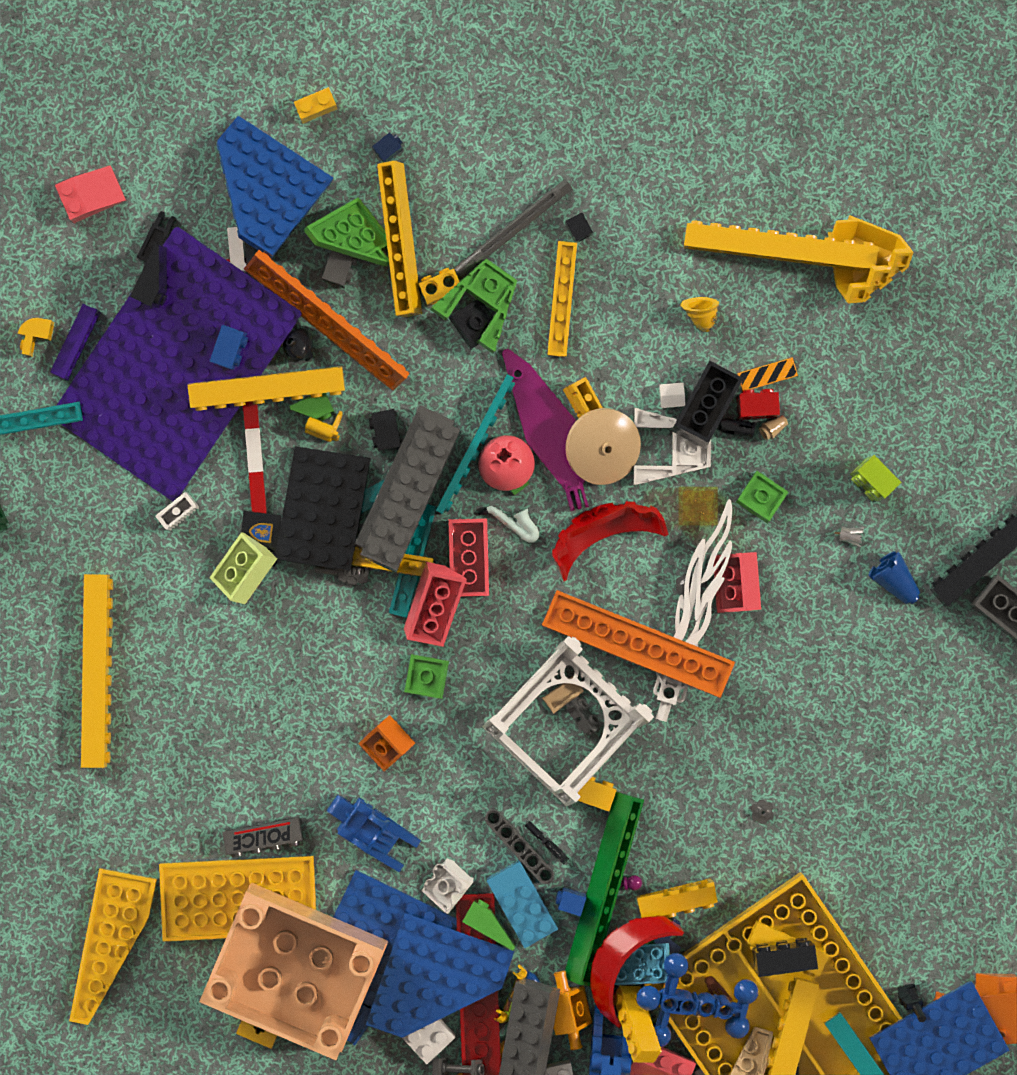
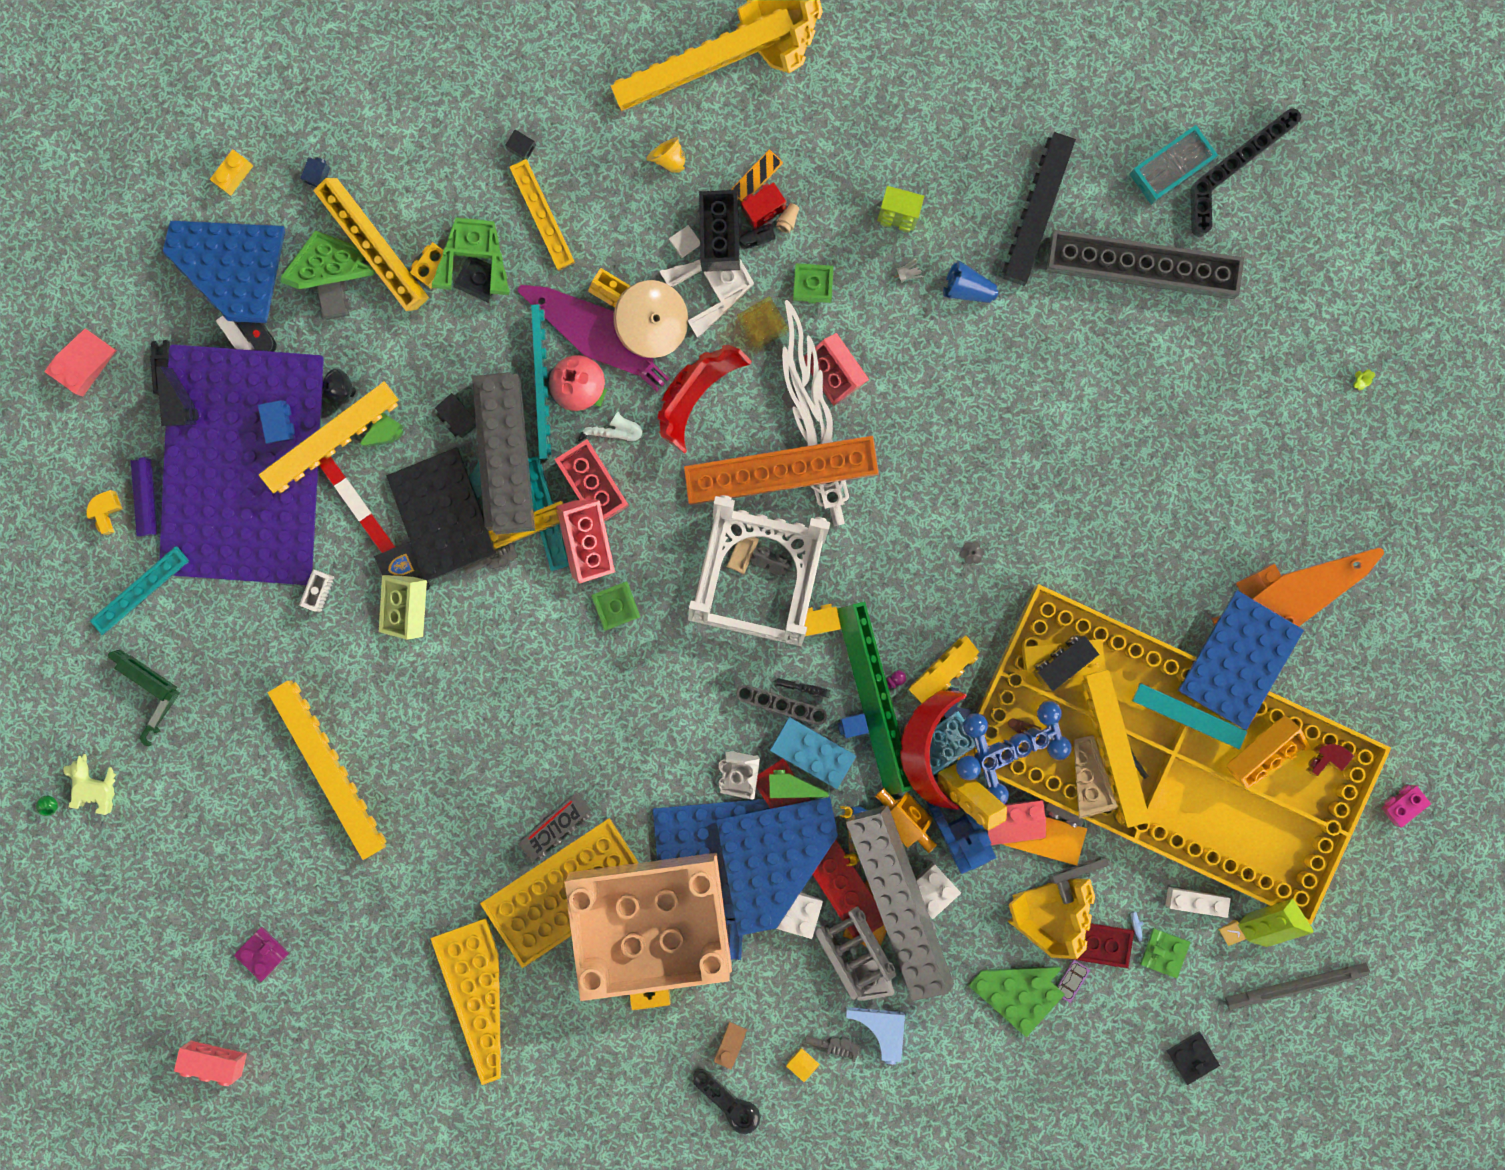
camera: 30 degrees left, 0 degrees up
(323, 430) = (402, 447): yellow piece -> none
(326, 320) = (347, 349): orange plate -> none
(370, 829) = (644, 766): blue piece -> none
(386, 743) = (615, 683): orange slope -> none
(512, 228) = (464, 179): dark grey piece -> none
(910, 1000) = (1193, 638): black piece -> none

